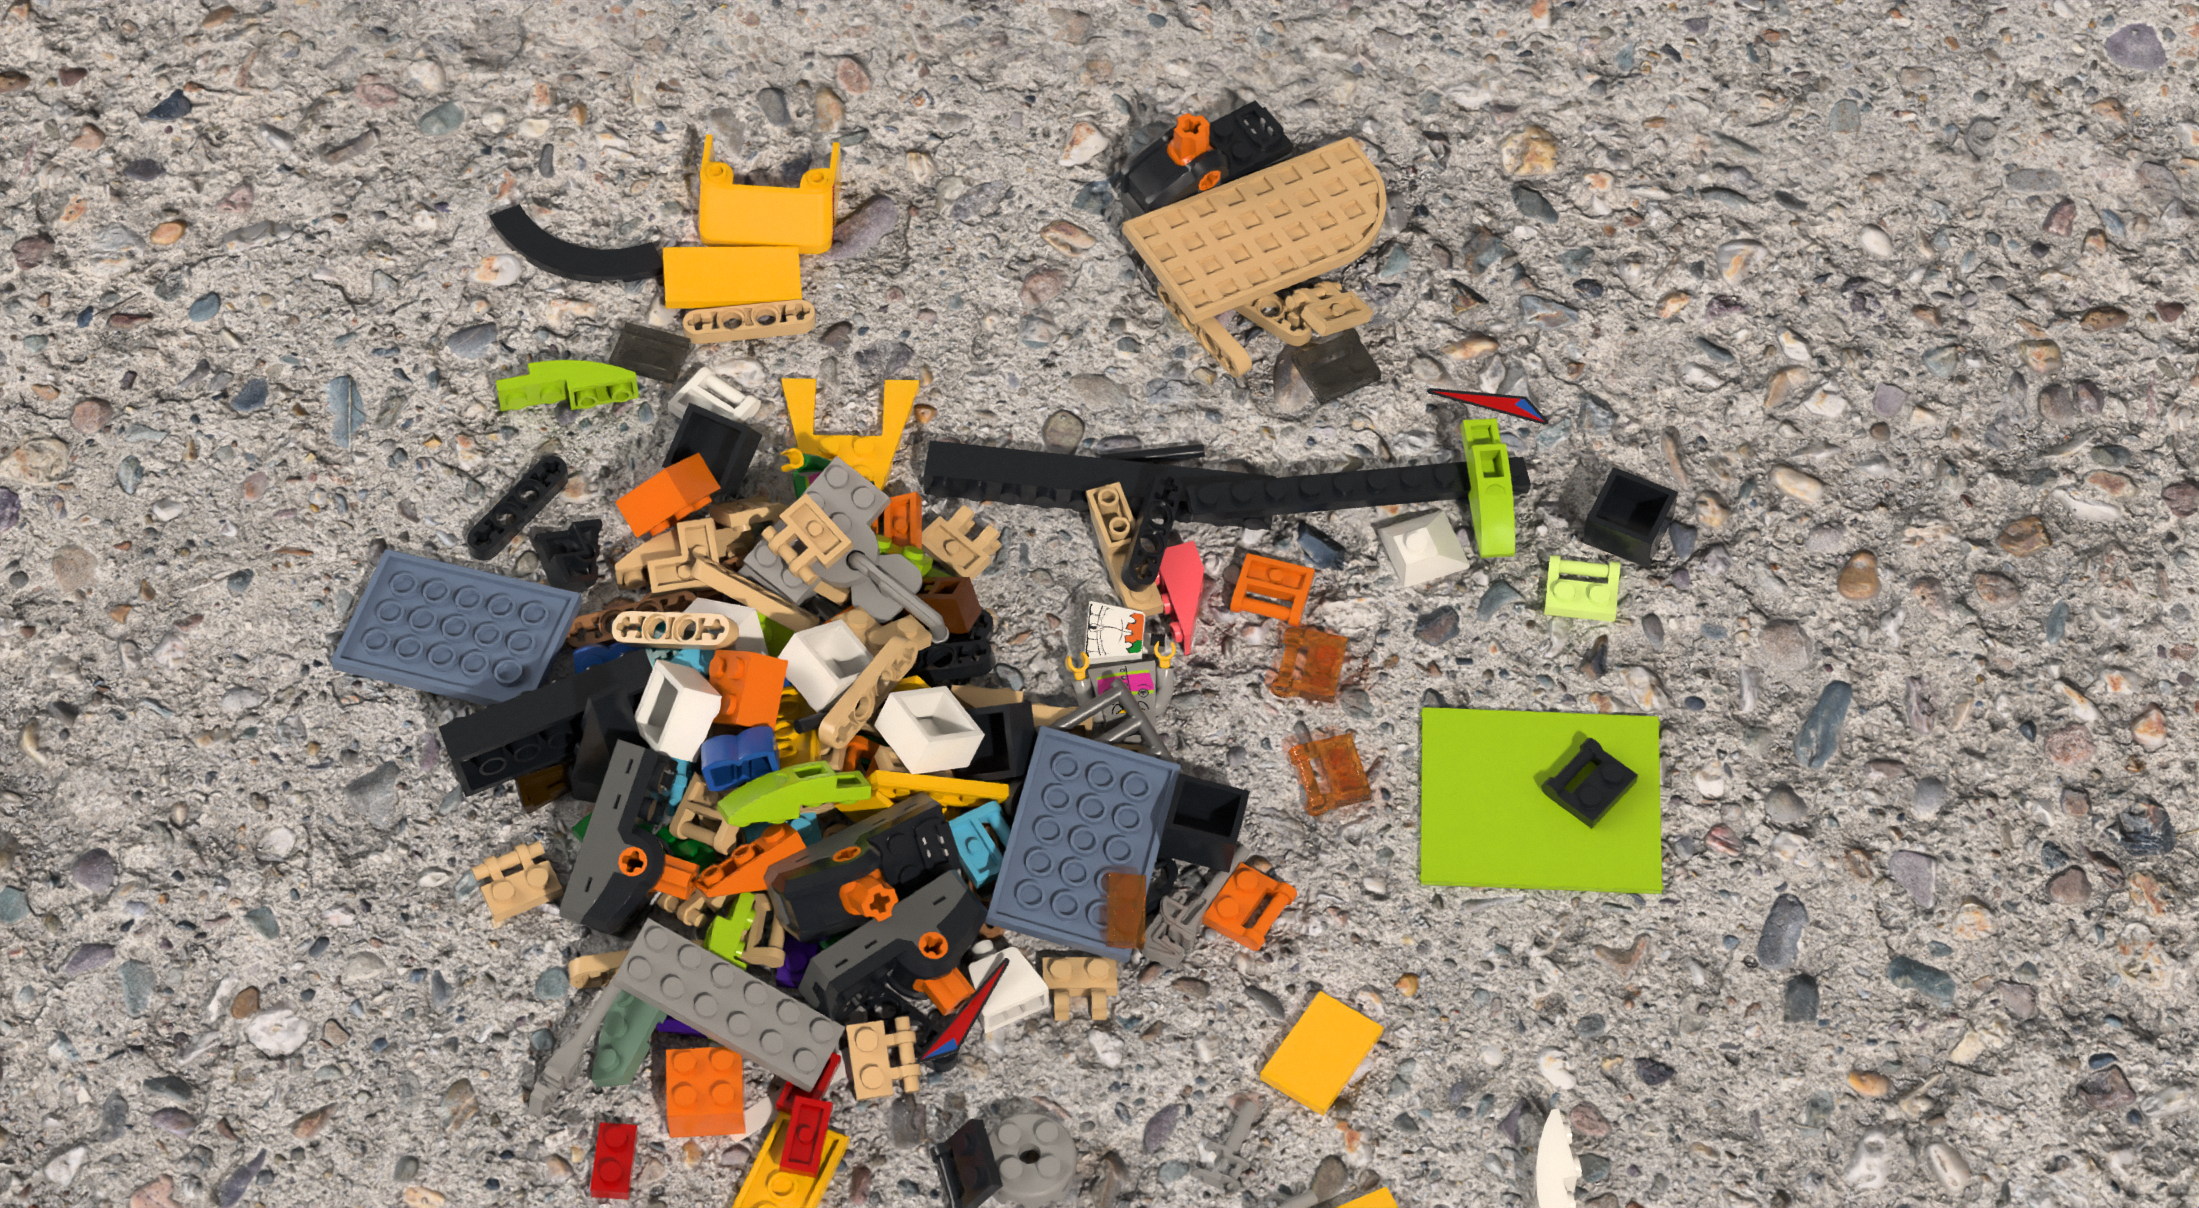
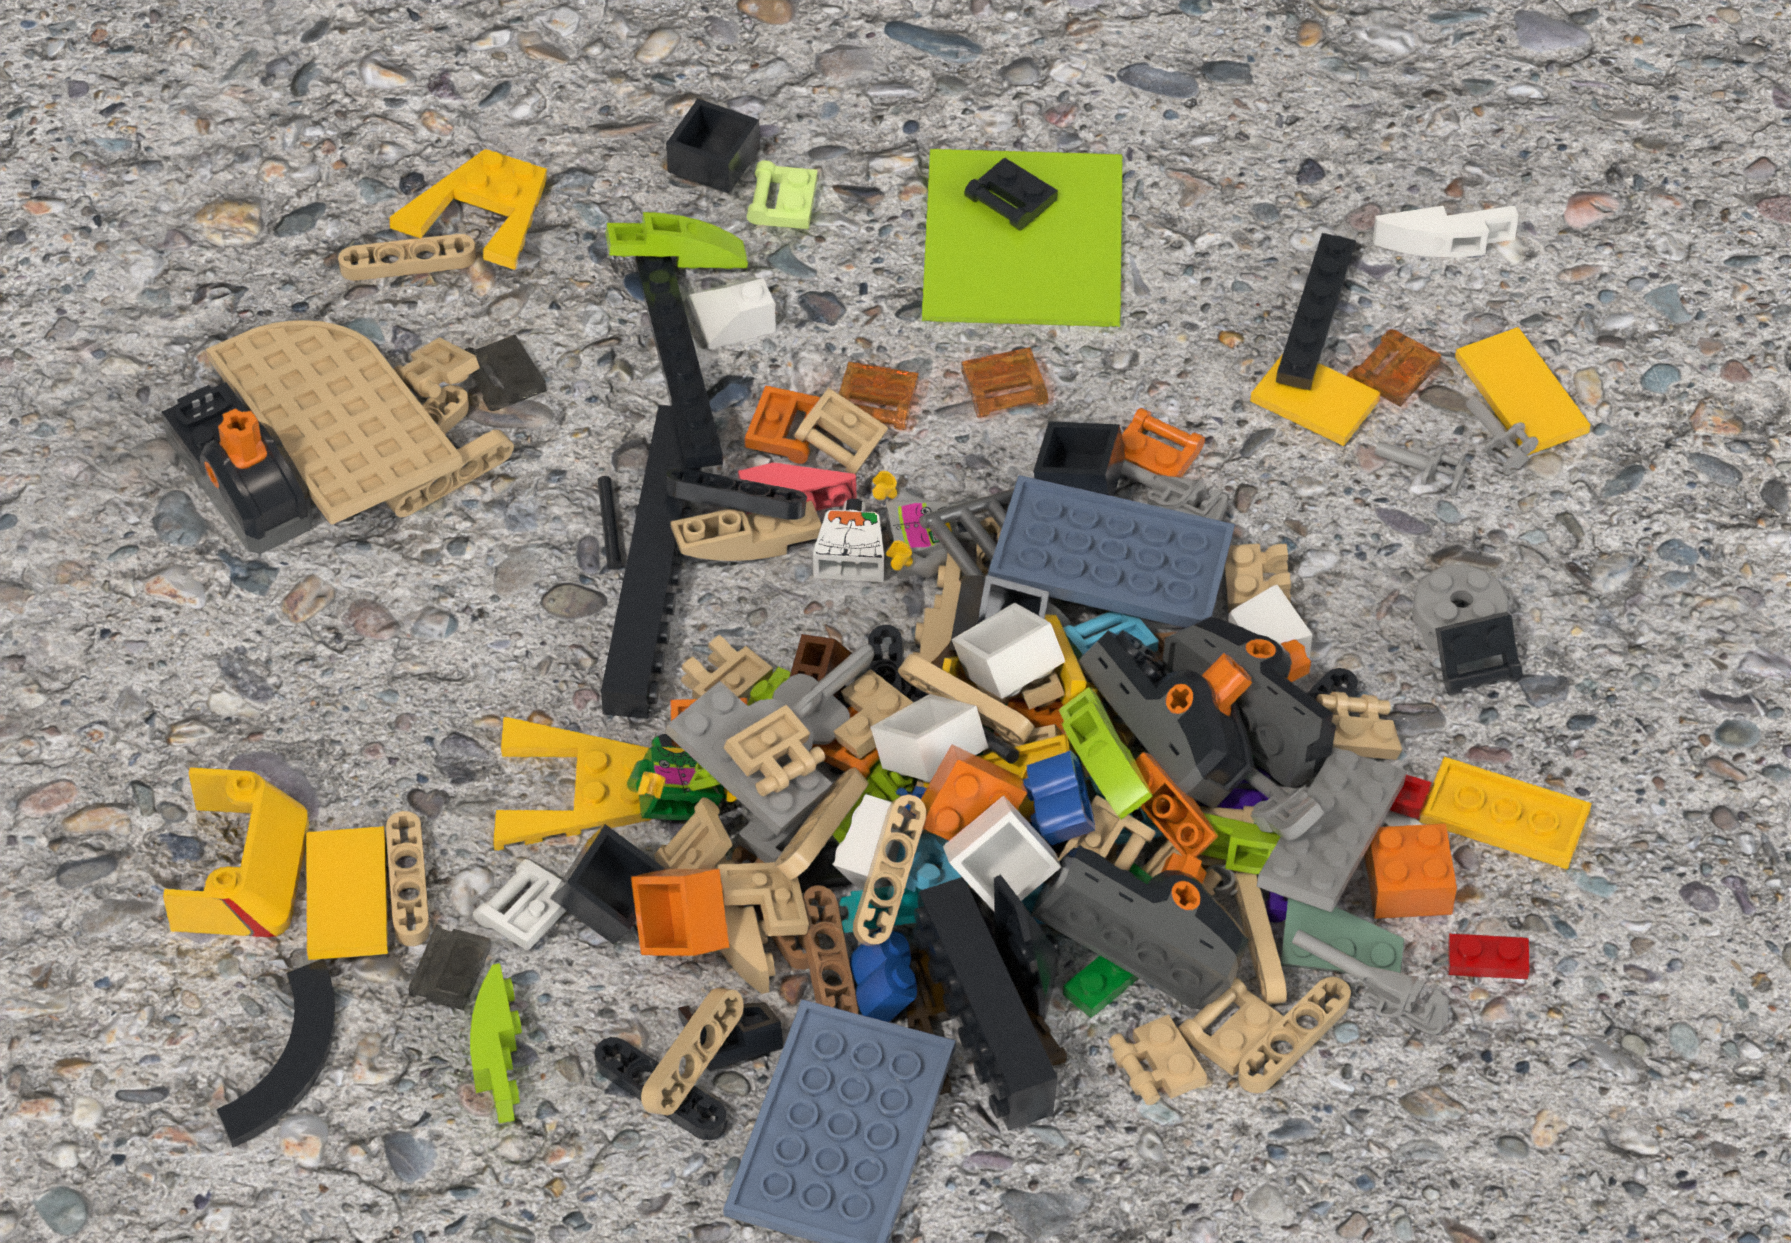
camera: 90 degrees left, 5 degrees down
(532, 994) = (1298, 1037): none -> tan beam
(535, 511) = (665, 1086): none -> tan beam
(541, 949) = (1237, 1034): none -> tan plate
(740, 952) = (1286, 811): none -> light grey piece
(806, 1136) = (1461, 777): red plate -> none
(956, 1031) = (1327, 661): sticker -> none
(1126, 910) = (1189, 518): clear orange plate -> none
(1264, 635) = (847, 424): none -> tan plate
(1353, 1134) = (1403, 373): none -> clear orange plate
(1436, 1055) = (1315, 311): none -> black plate
(1482, 285) = (406, 252): none -> tan beam
(1506, 404) = (553, 249): sticker -> none
(1579, 352) = (489, 183): none -> yellow wing

